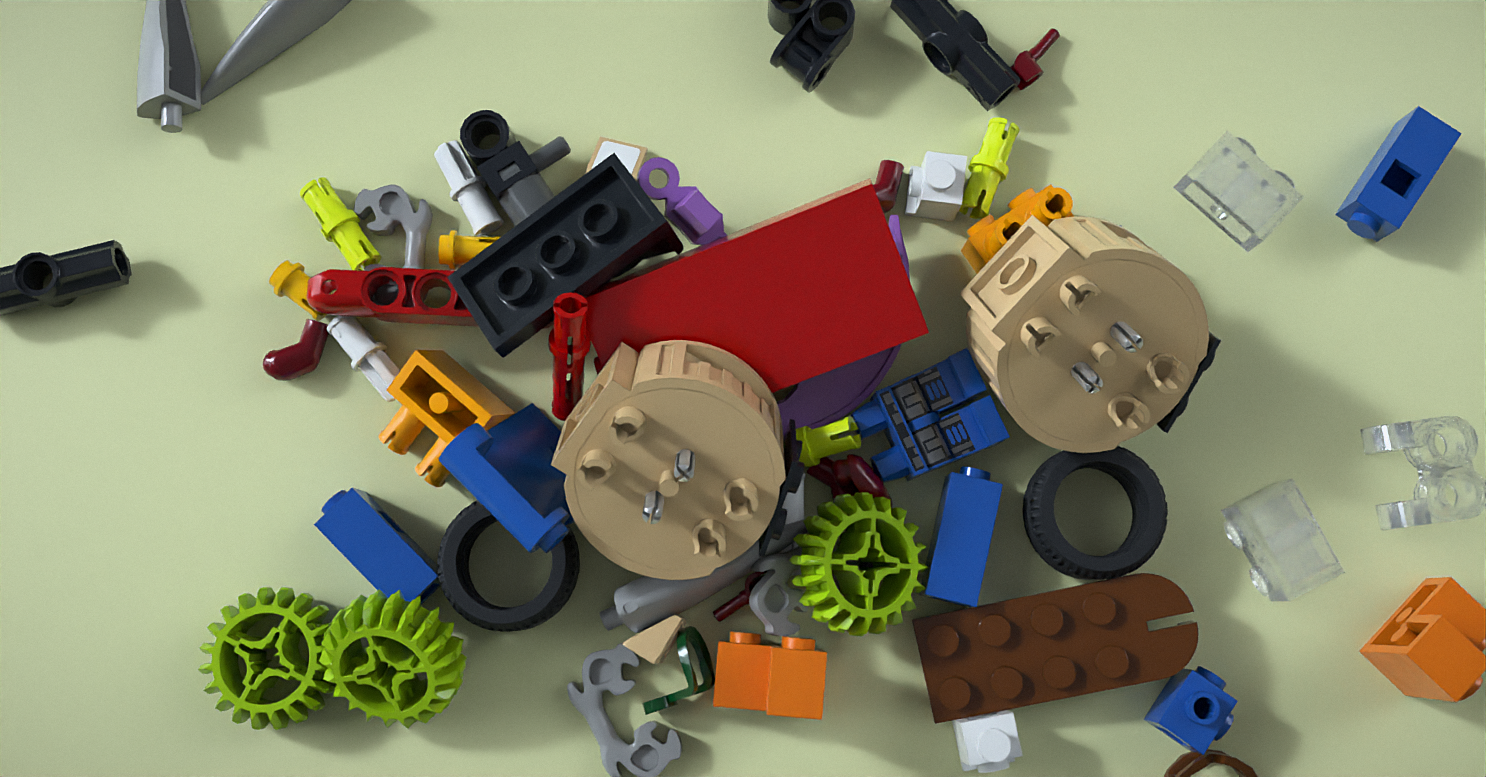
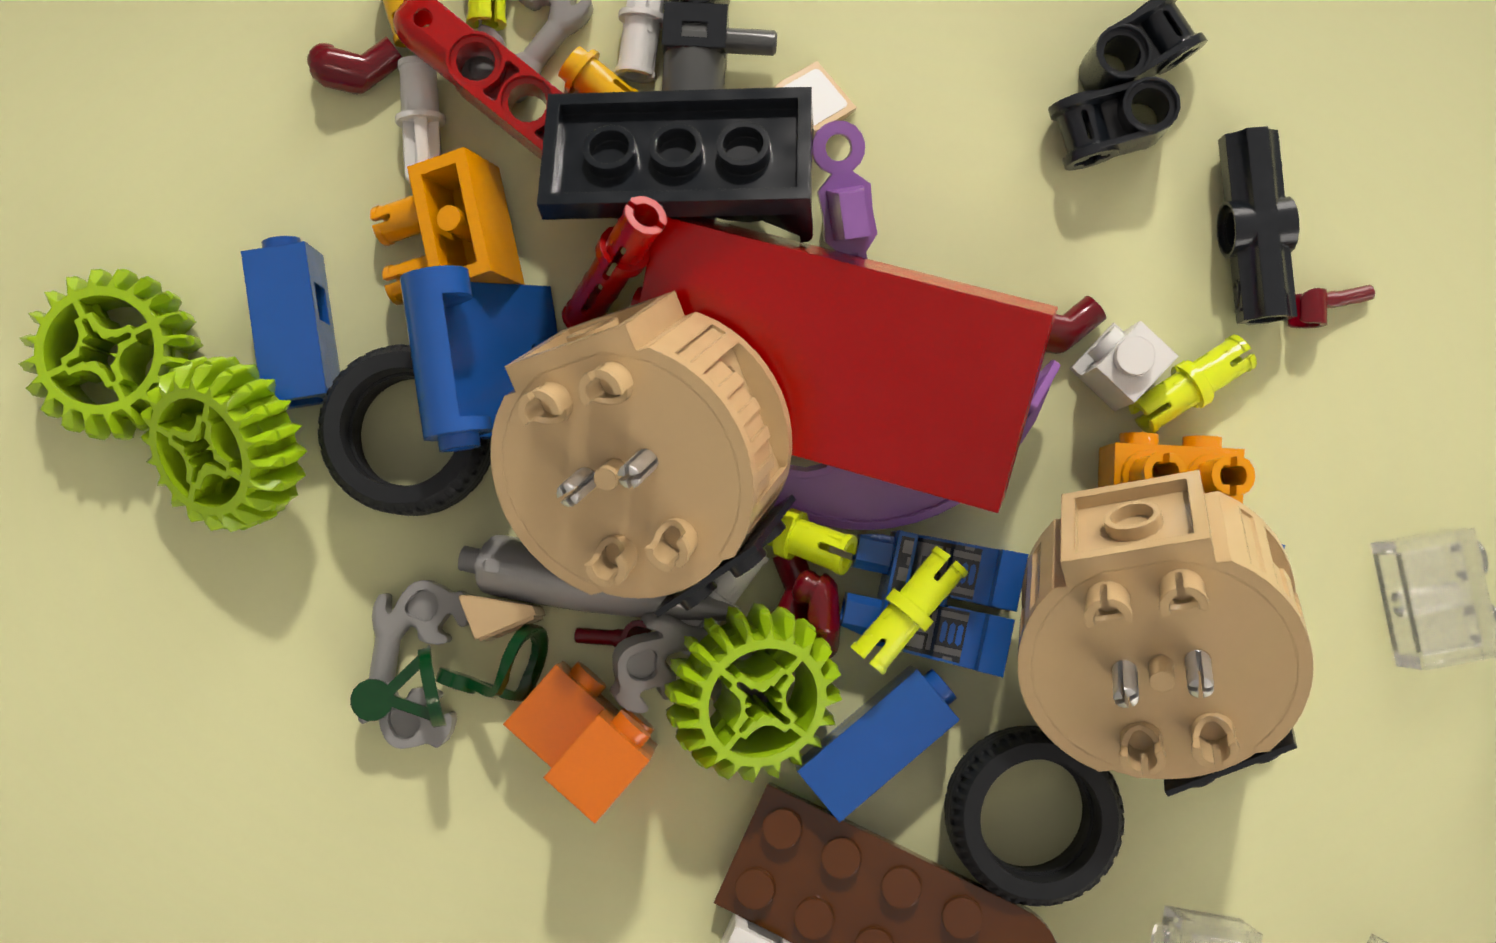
camera: 30 degrees right, 5 degrees up
(615, 755) = (375, 698): none -> dark green piece
(919, 436) = (909, 609): none -> neon yellow pin

